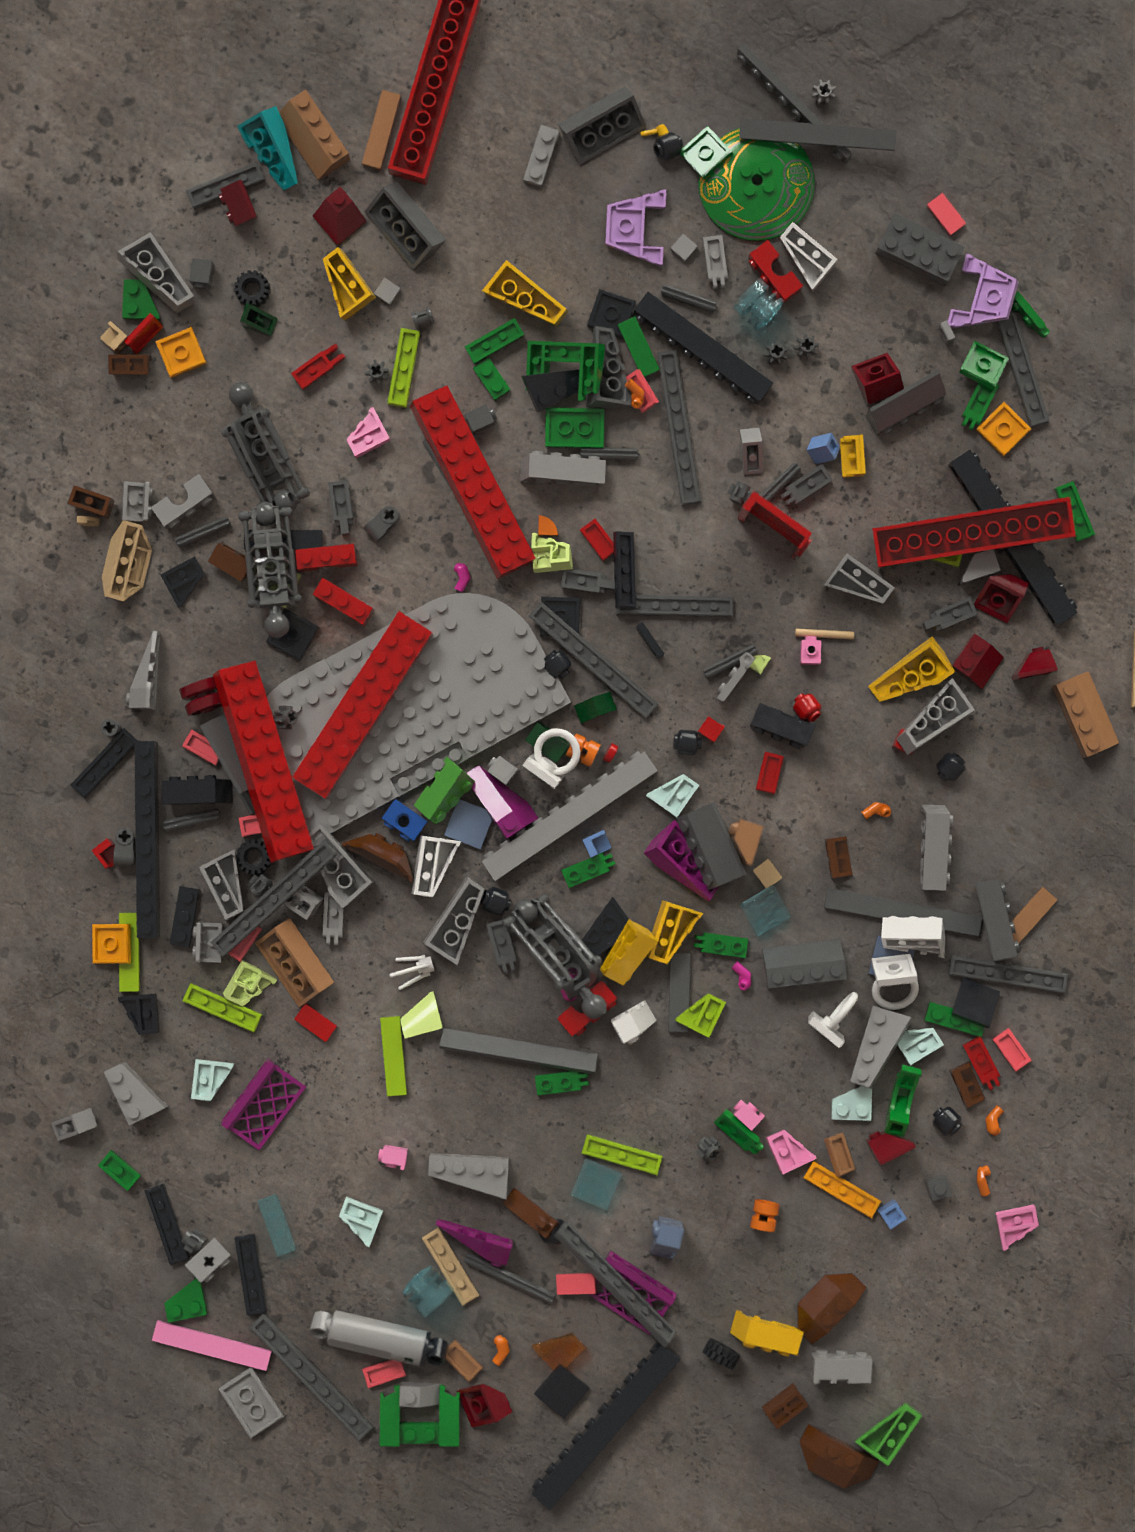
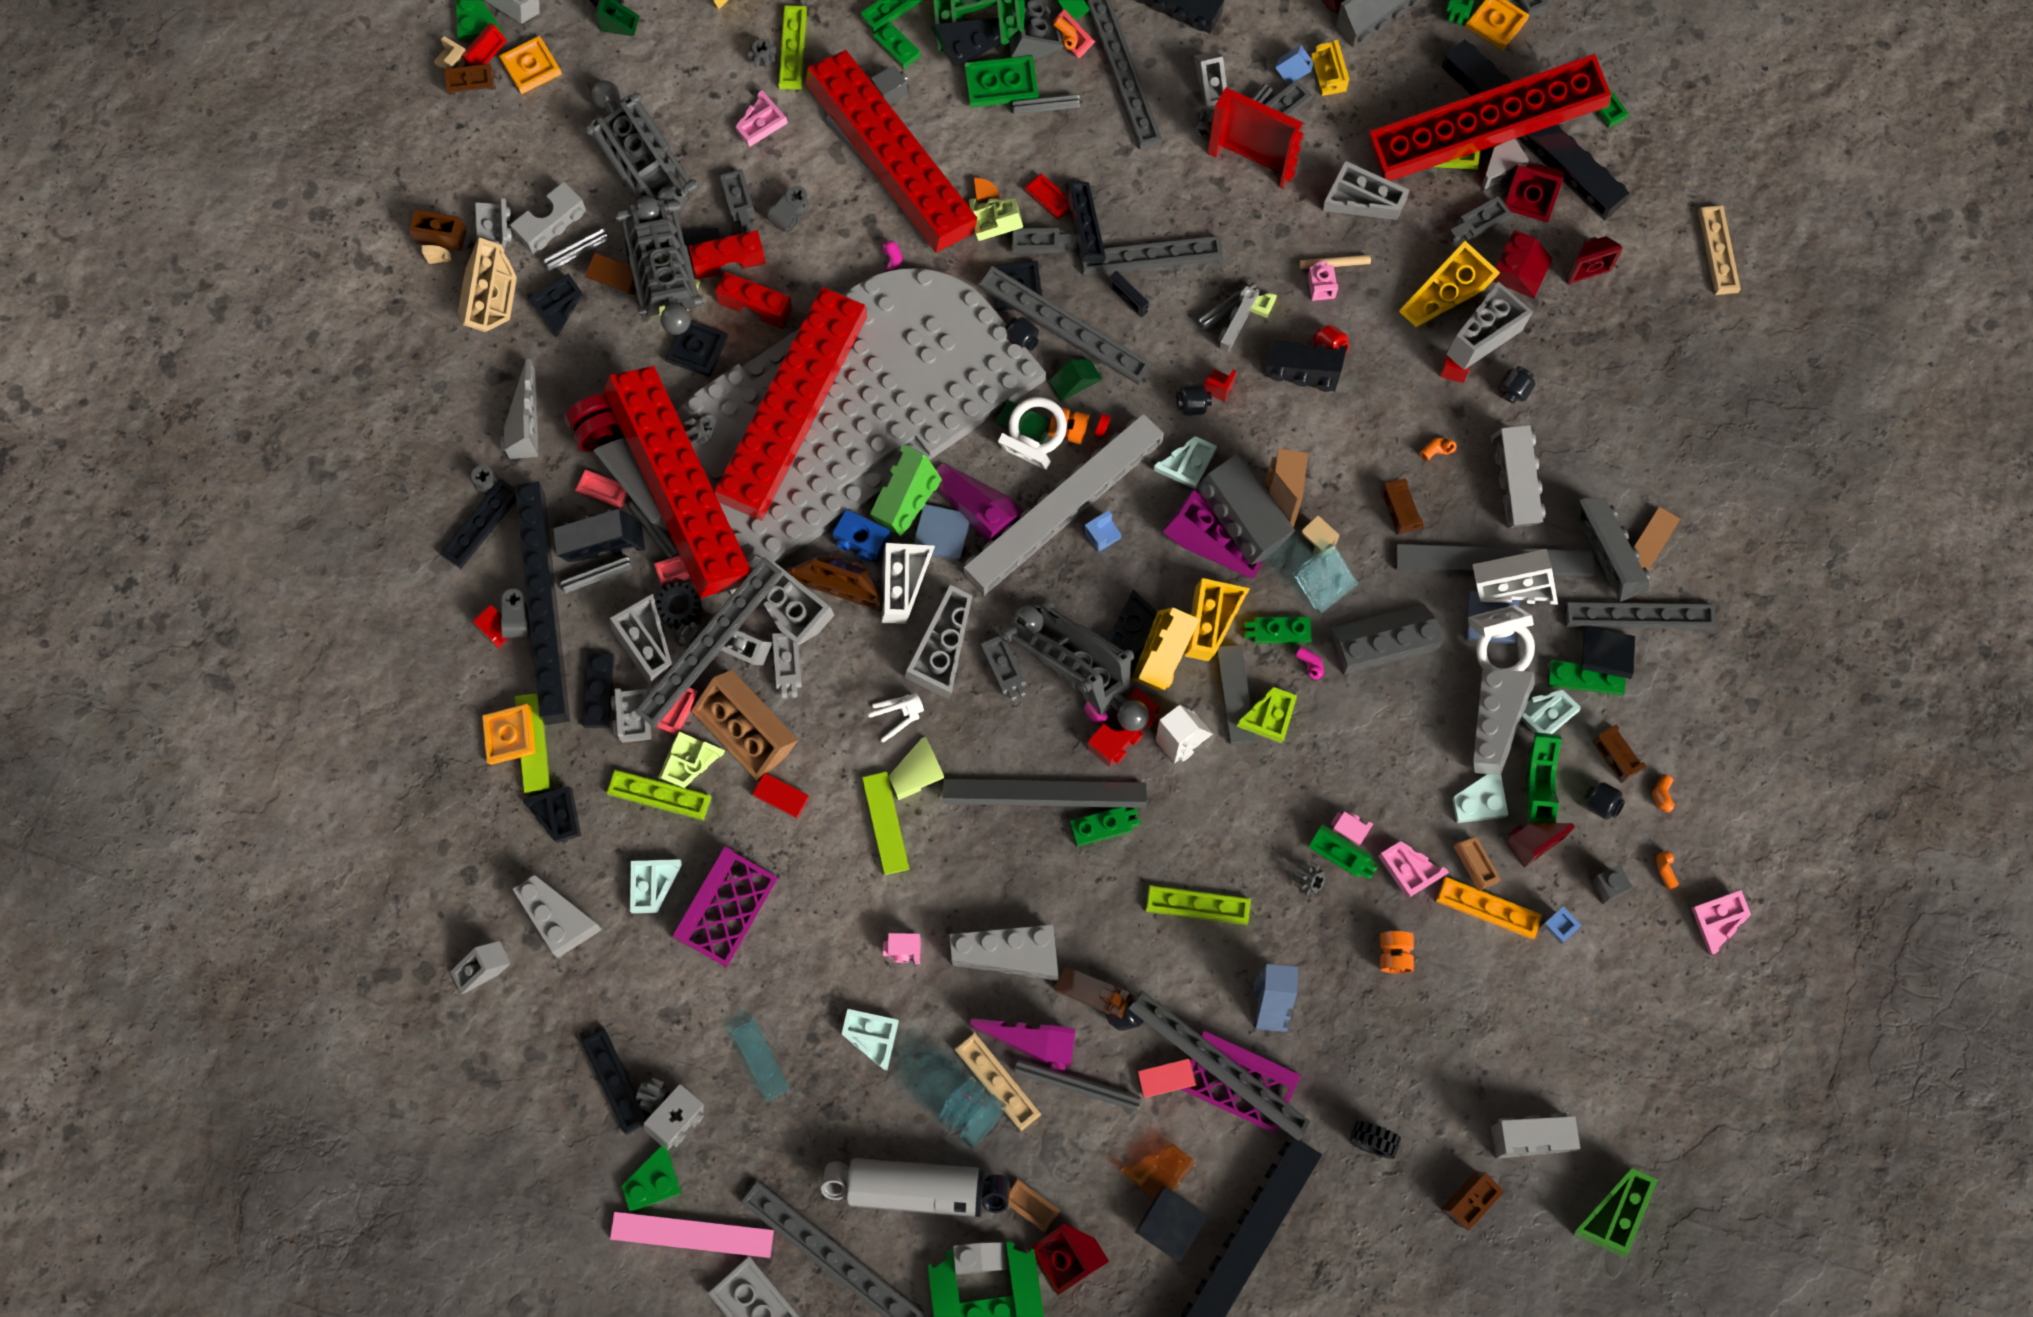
camera: 10 degrees left, 15 degrees down
(119, 1170) = (545, 1018): green plate -> none
(250, 1274) = (733, 1132): black tile -> none
(316, 367) = (691, 57): red hinge -> none
(383, 1372) = (928, 1237): coral tile -> none
(495, 901) = (988, 615): black head -> none
(502, 770) = (975, 460): light grey slope -> none
(503, 1349) = (1083, 1180): orange arm -> none
(563, 469) = (993, 123): light grey wedge -> none
(587, 869) = (1096, 565): green hinge -> none
(596, 1183) = (1171, 945): clear light blue plate -> none
(766, 1334) = (1429, 1105): yellow wedge -> none
(769, 772) = (1299, 424): red tile -> none
(827, 1304) = (1499, 1058): reddish brown wedge -> none
(829, 1025) = (1431, 701): white tile -> none
(835, 1459) = (1553, 1262): reddish brown wedge -> none
(982, 1062) = (1633, 724): red hinge -> none
(1011, 1049) = (1665, 705): coral tile -> none
(1085, 714) = (1662, 307): medium nougat slope -> none

